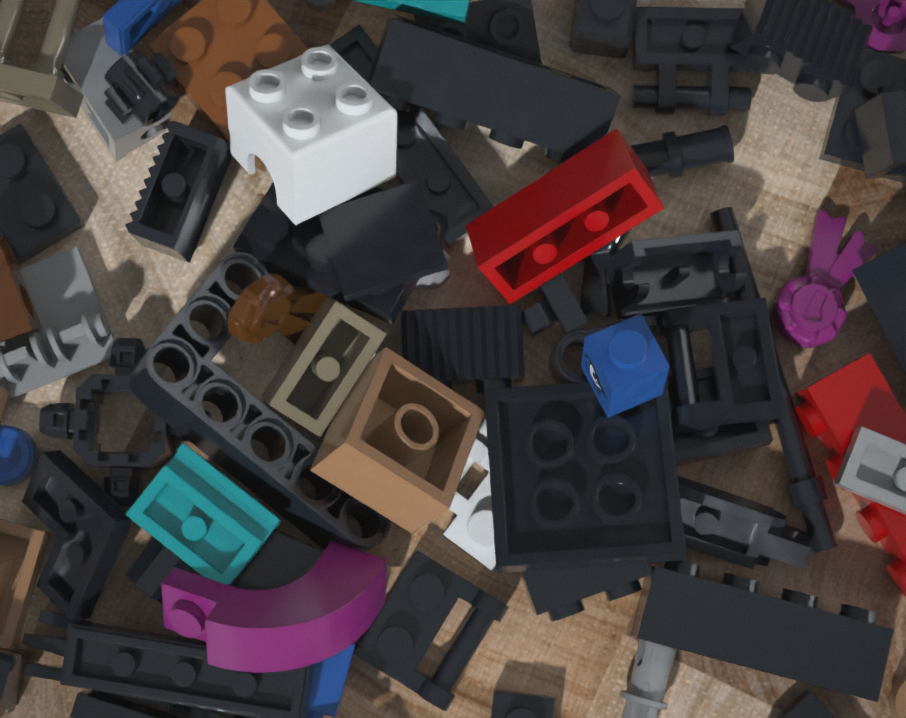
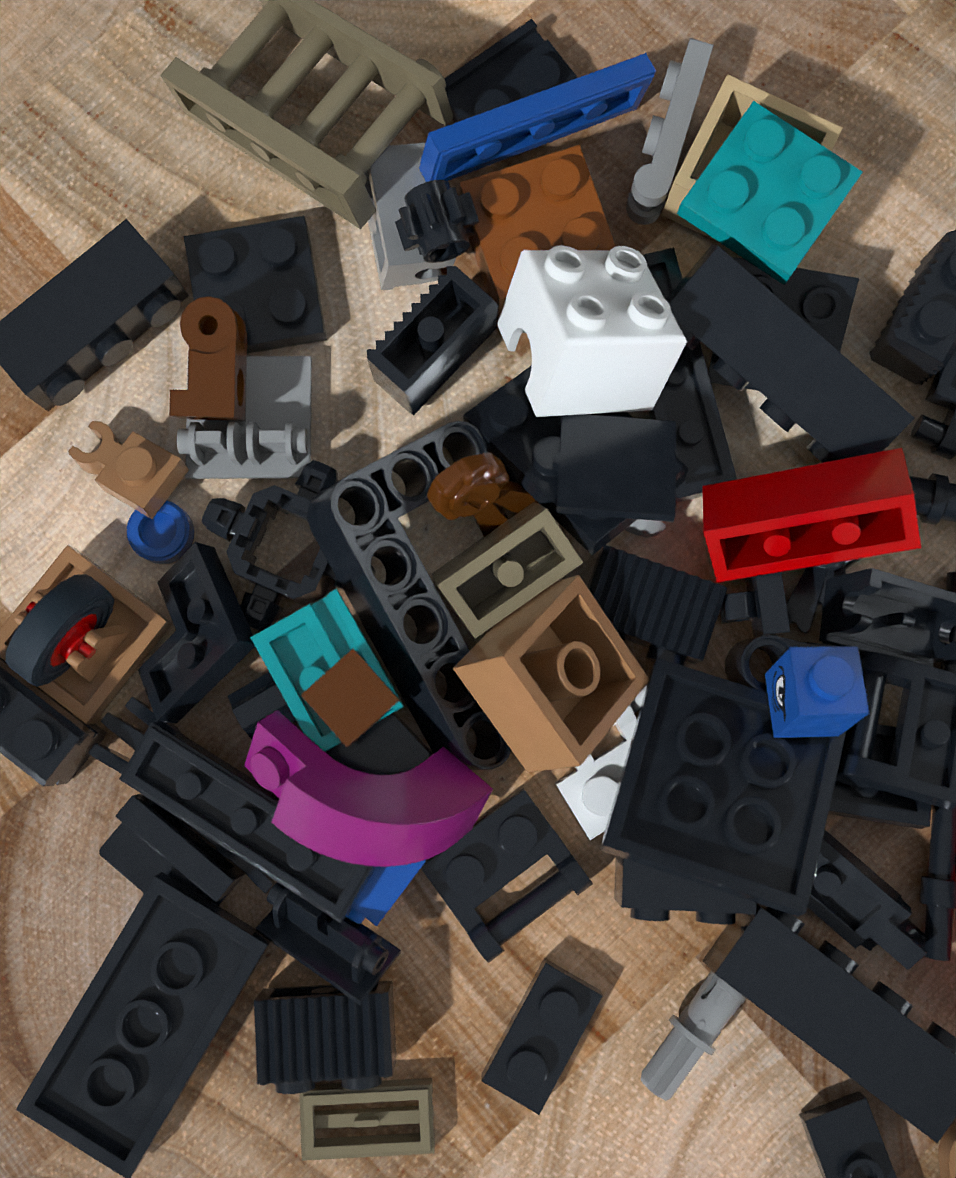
camera: 25 degrees right, 0 degrees up
(232, 530) = (350, 697): none -> reddish brown tile

